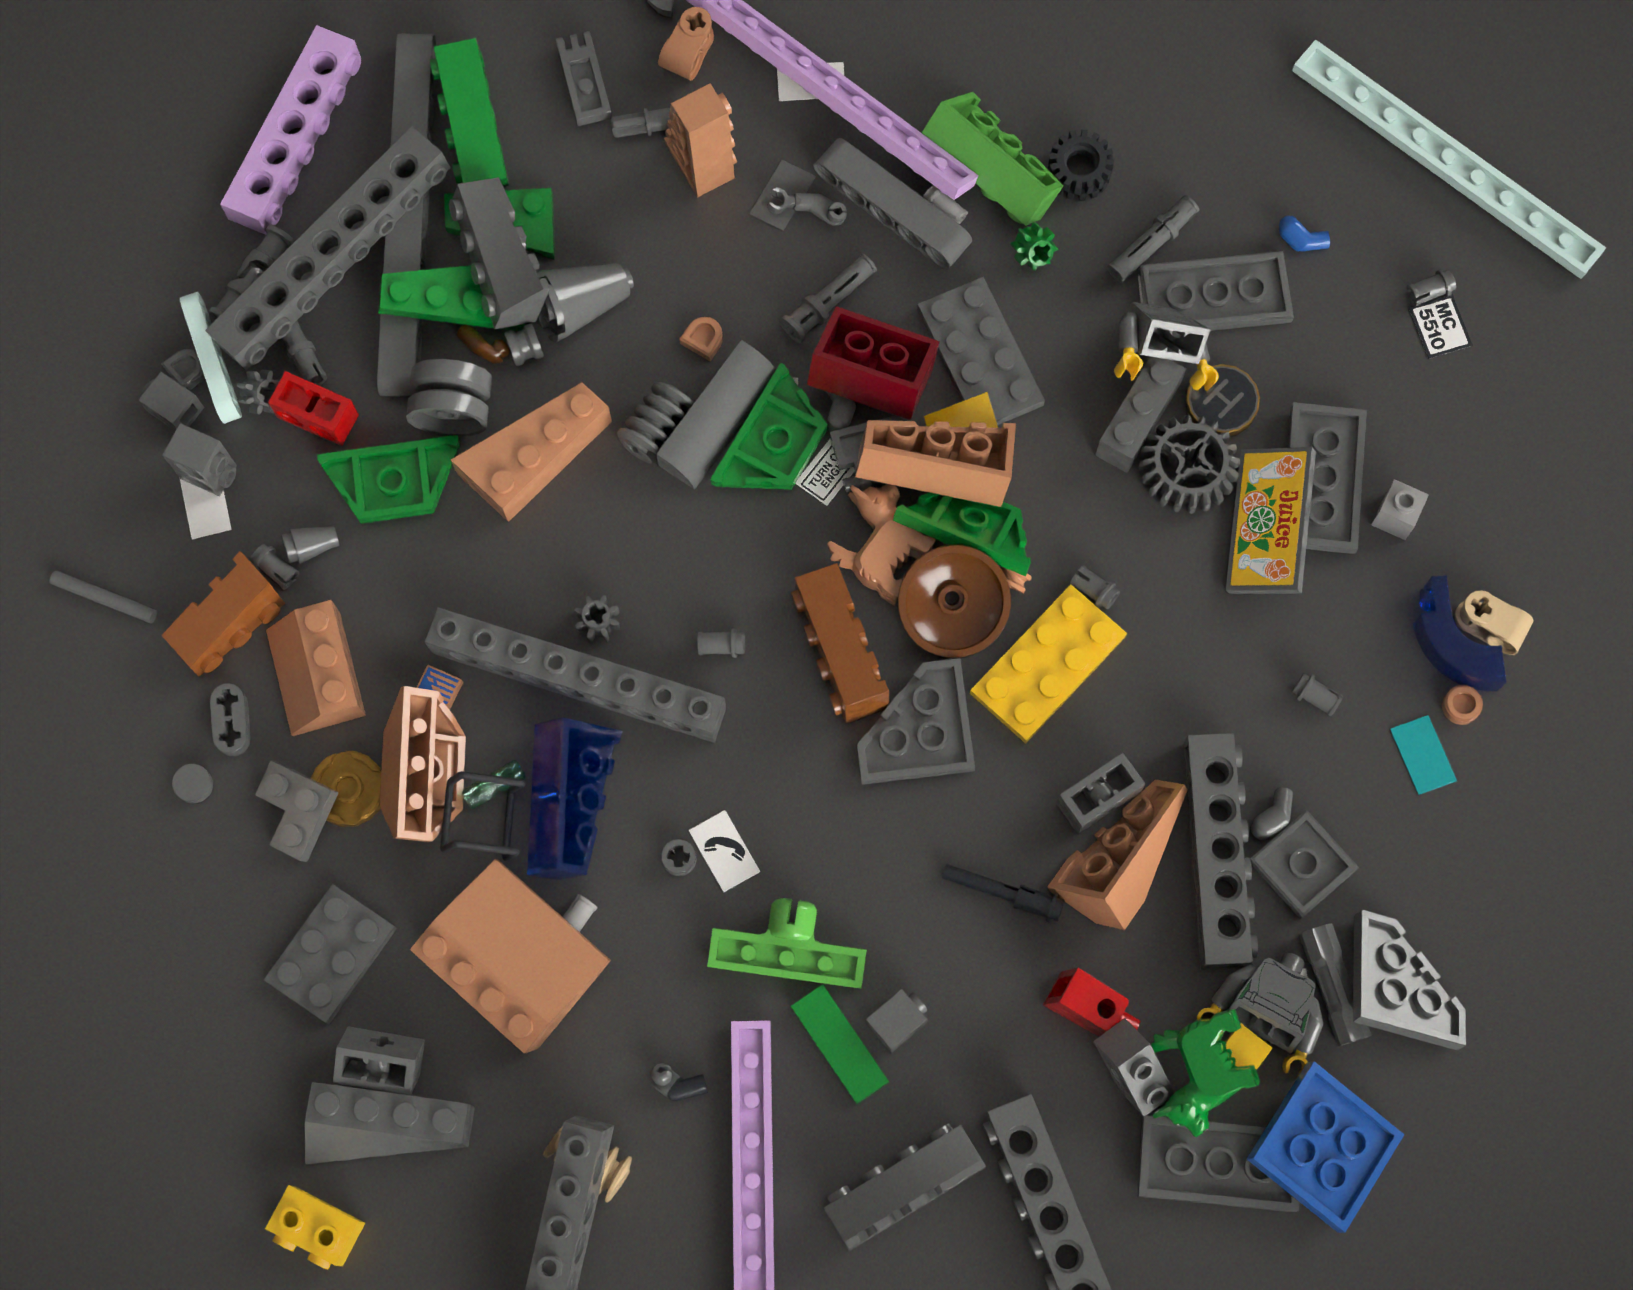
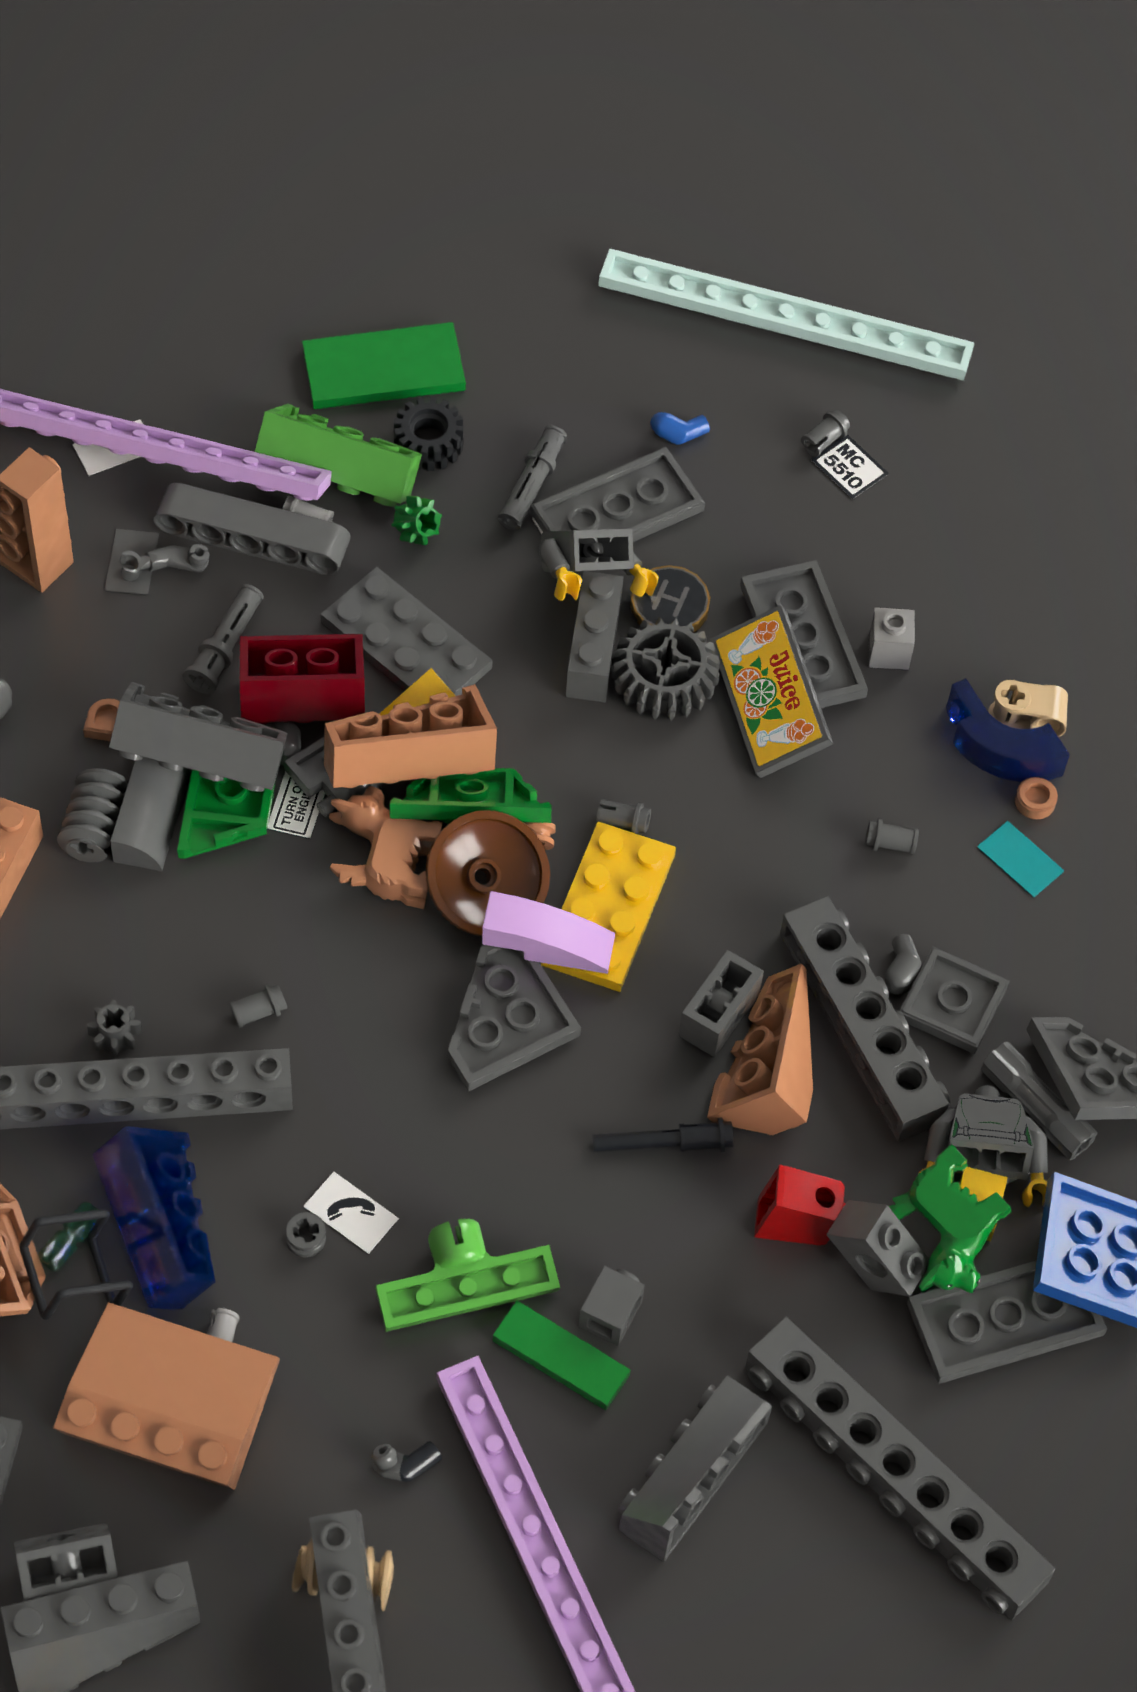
camera: 30 degrees left, 15 degrees down
(759, 389) = (196, 739): none -> dark grey wedge
(840, 644) = (389, 960): dark orange wedge -> none
(979, 677) = (546, 933): none -> lavender slope
(1070, 84) = (383, 365): none -> green tile

